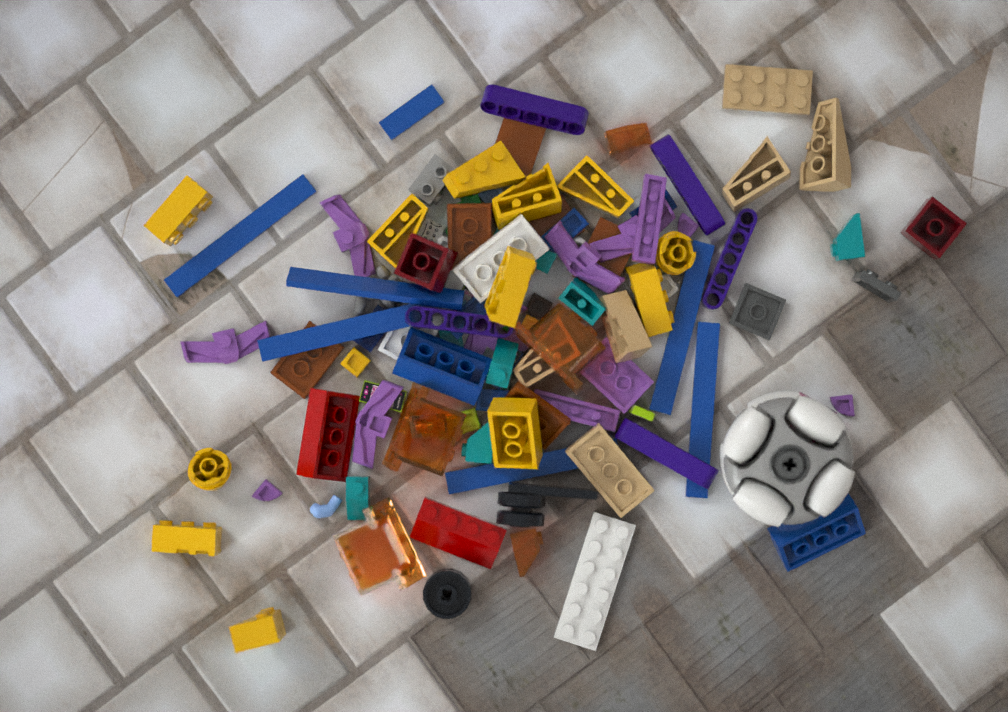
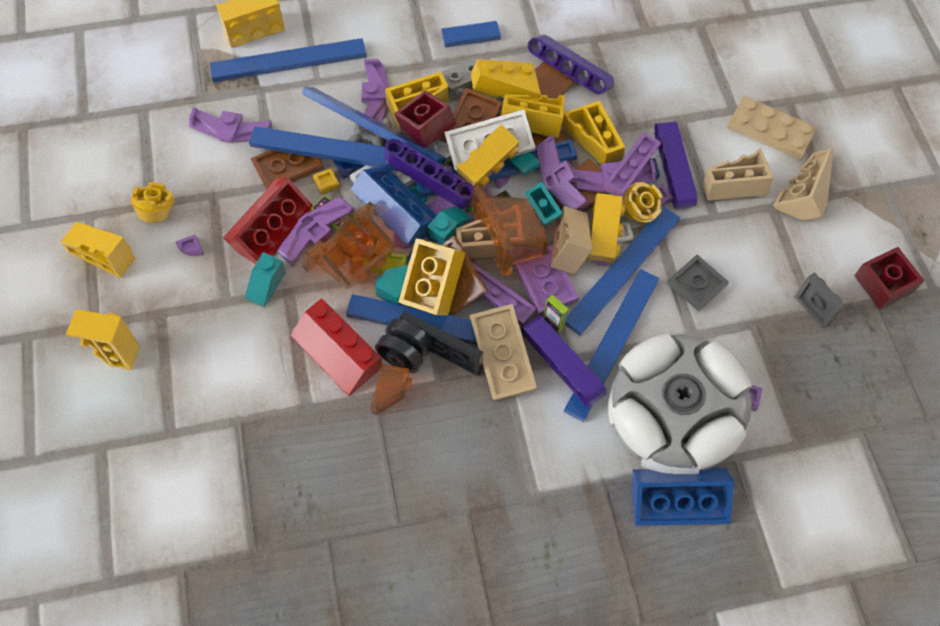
camera: 20 degrees right, 25 degrees down
(326, 510) = (230, 280): light blue arm -> none
(379, 550) = (256, 327): clear orange windscreen -> none
(444, 606) = (296, 392): black wheel -> none
(594, 581) = (439, 449): white plate -> none
(627, 138) = (637, 112): clear orange slope -> none
(731, 248) = (684, 238): dark purple beam -> none
(849, 241) = (804, 260): teal slope -> none

